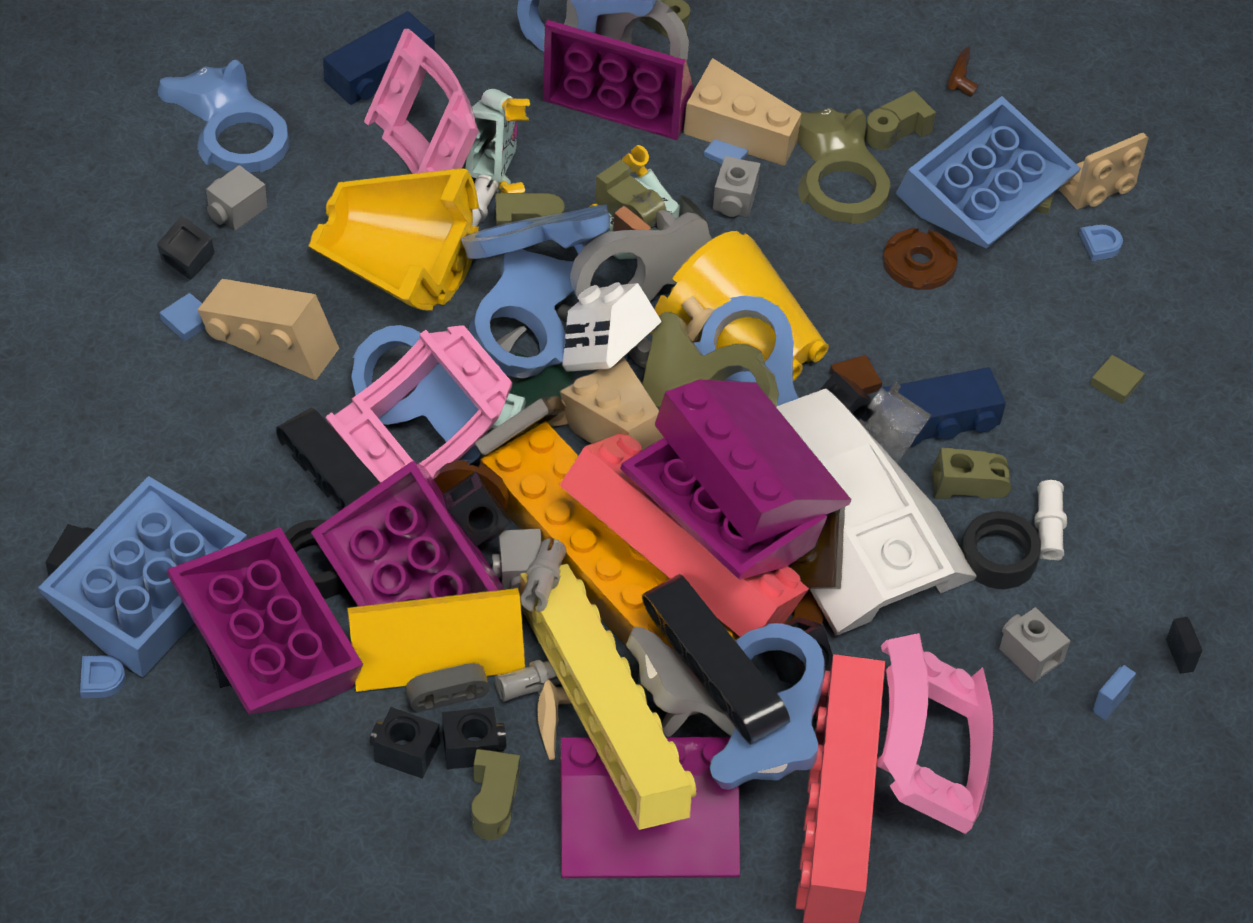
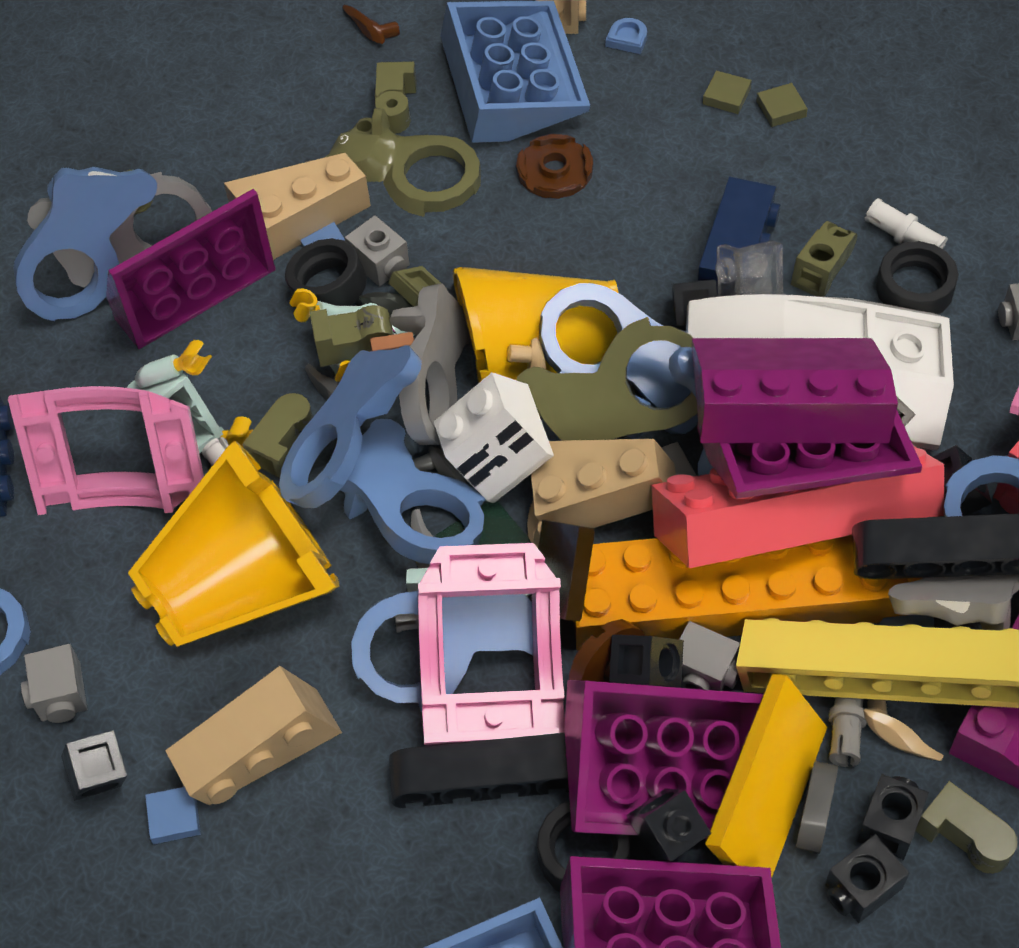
camera: 50 degrees left, 5 degrees up
(351, 580) = (668, 824): none -> black brick
(543, 575) = (763, 644): light grey pin -> none
(690, 152) = (324, 255): none -> black tyre
(725, 220) = (411, 281): none -> olive tile
(859, 371) = (654, 282): reddish brown tile -> none
(1098, 335) = (727, 92): none -> olive tile

